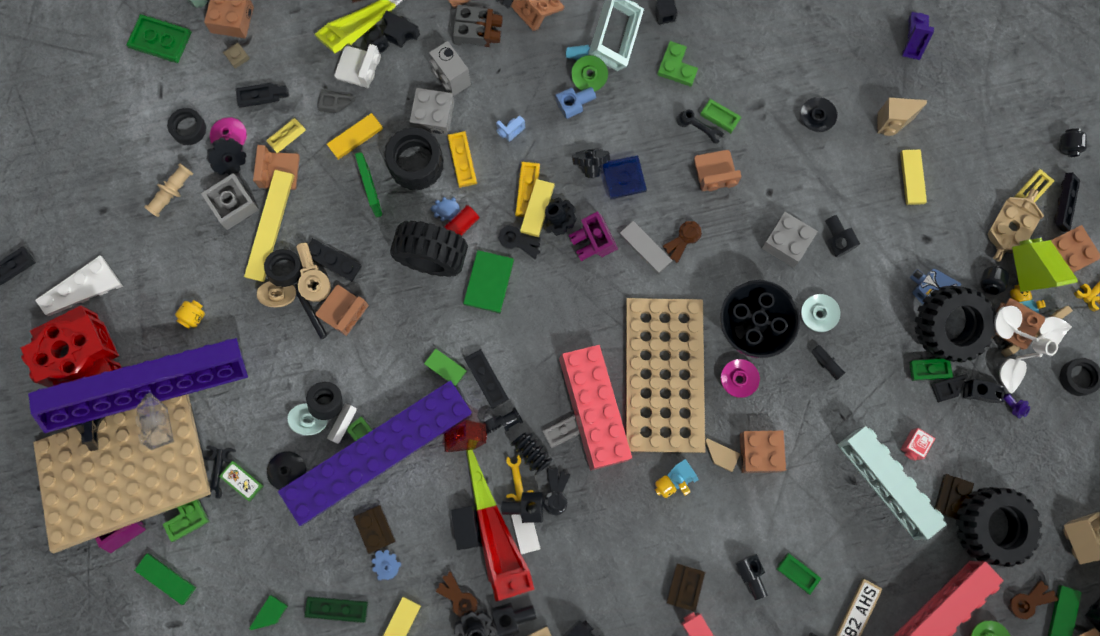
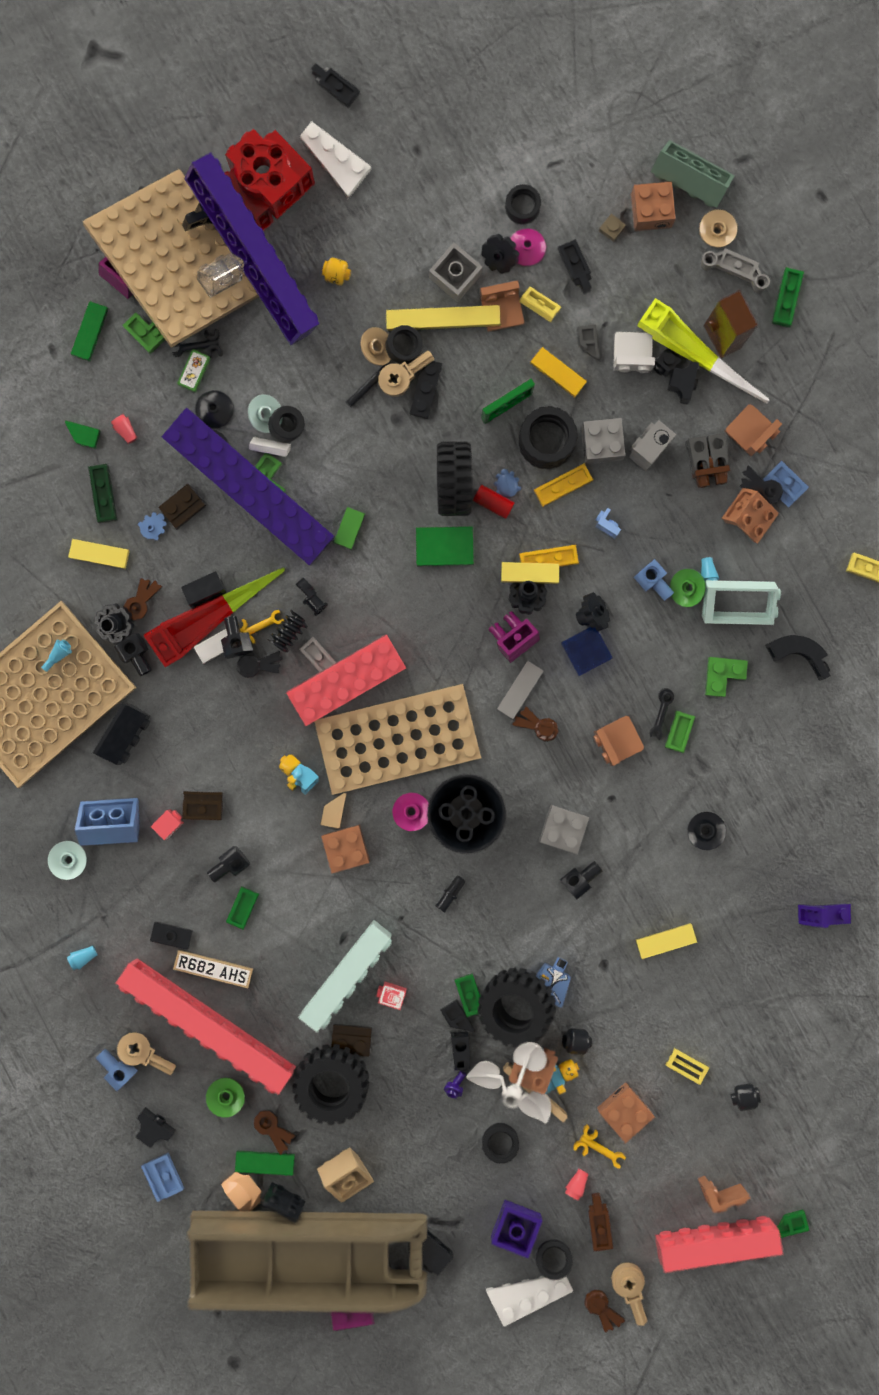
camera: 75 degrees right, 10 degrees up
(159, 38) = (609, 144): green tile -> none
(168, 190) = (452, 210): tan piece -> none
(276, 568) = (124, 428): none -> coral cone
(342, 310) = (378, 413): nougat bracket -> none
(465, 436) = (286, 565): clear red slope -> none
(486, 379) = (348, 570): black plate -> none
(511, 237) = (494, 555): black piece -> none
(824, 304) = (487, 879): light aqua dish -> none
(897, 114) = (725, 910): tan slope -> none
(1022, 213) = (656, 1054): tan plate -> none
(1040, 265) = (599, 1082): lime slope -> none
(1067, 202) = (679, 1101): black plate -> none

